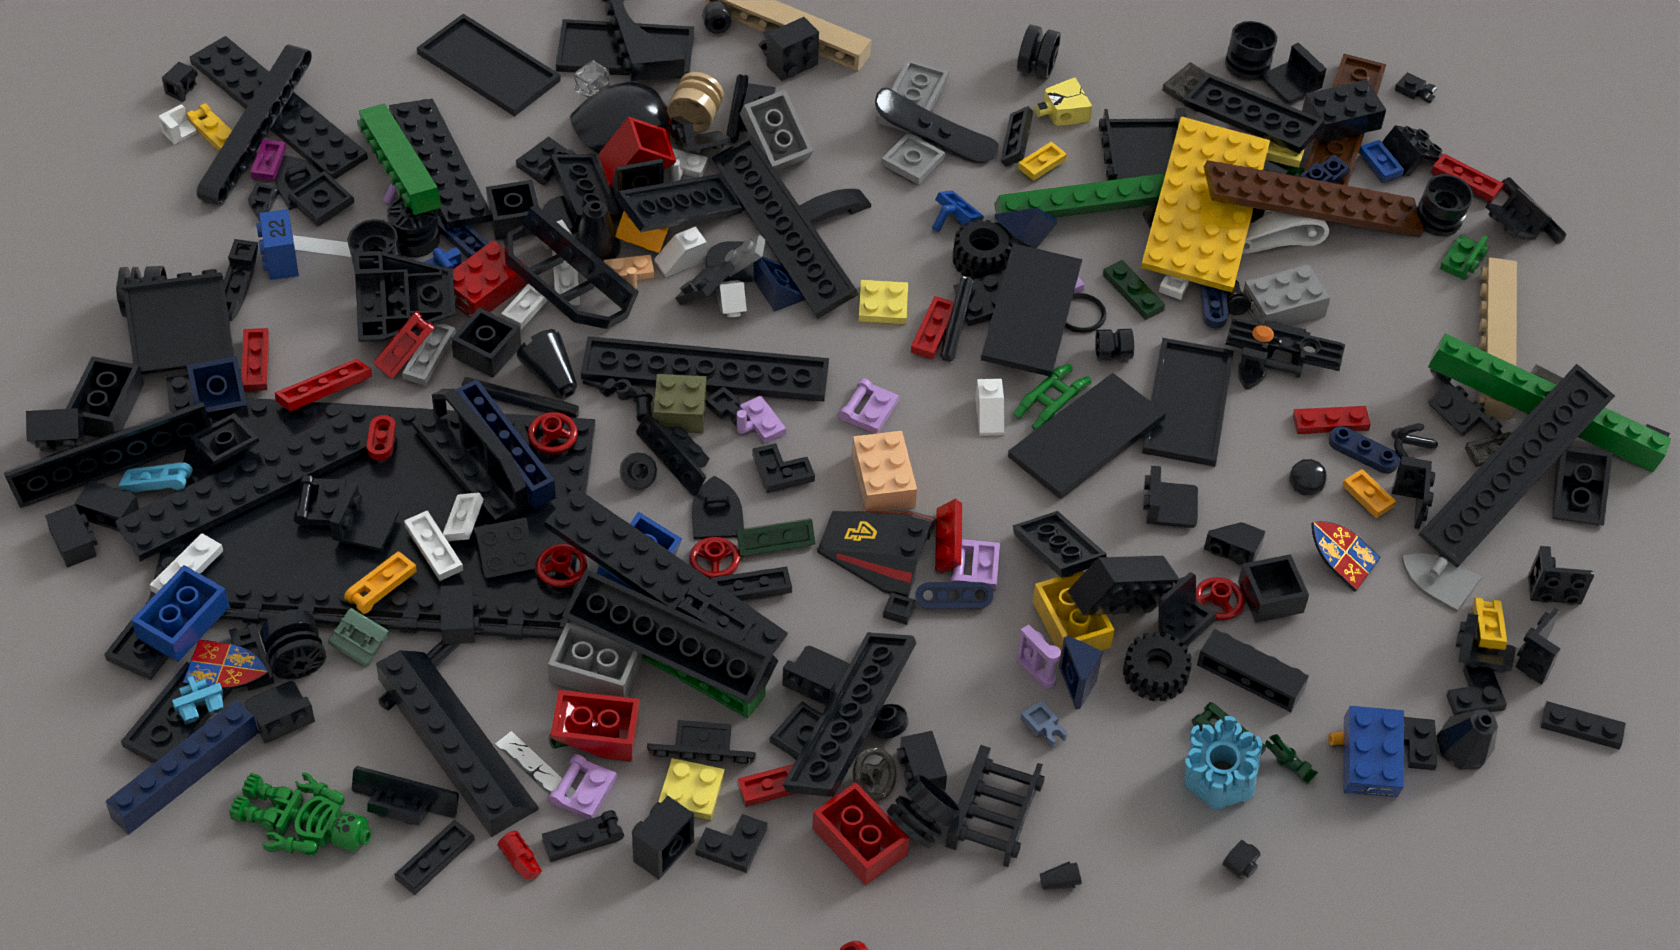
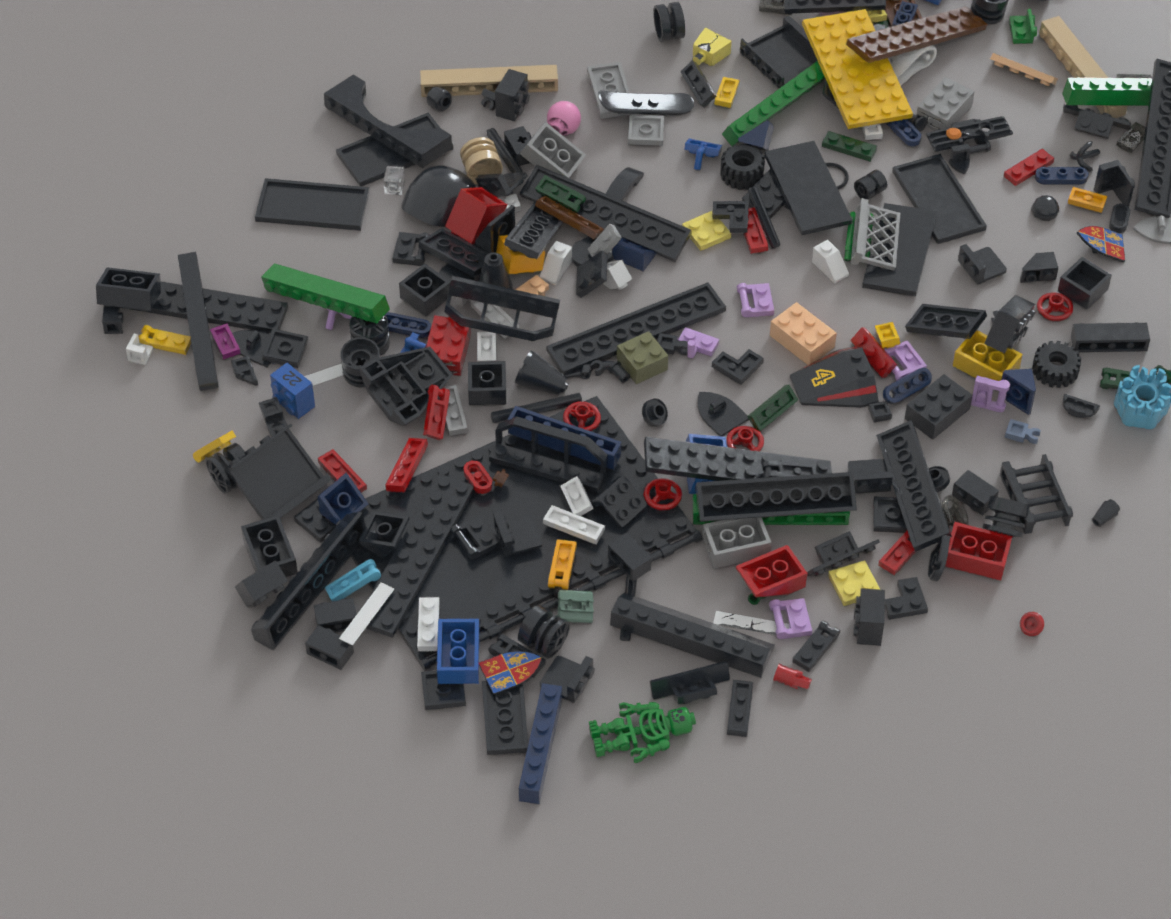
camera: 30 degrees left, 0 degrees up
(129, 519) = (366, 613): none -> white sticker
(145, 258) = (214, 447): none -> yellow plate
(187, 704) = (524, 691): medium azure hips -> none
(210, 55) = (128, 289): none -> black brick
(402, 451) = (500, 478): none -> reddish brown plate
(433, 143) = (312, 263): black plate -> none
(676, 452) = (666, 389): black bracket -> none
(735, 206) = (569, 217): none -> reddish brown tile
(747, 178) = (560, 193): none -> dark green plate
(756, 583) = (788, 440): black plate -> none
(802, 815) = (938, 558): none -> black tile
(829, 101) = (564, 117): none -> bright pink brick
(924, 296) = (735, 211): none -> black plate
(967, 639) = (938, 406): none -> black brick
(980, 524) = (887, 335): none -> yellow plate
(1051, 386) = (861, 229): none -> light grey fence
(1142, 733) = (1079, 407): none -> black plate
(1181, 613) = (1049, 326): black bracket -> none
(1393, 536) = (1119, 218): none -> black tile
(1416, 297) = (1030, 73): none -> light nougat plate

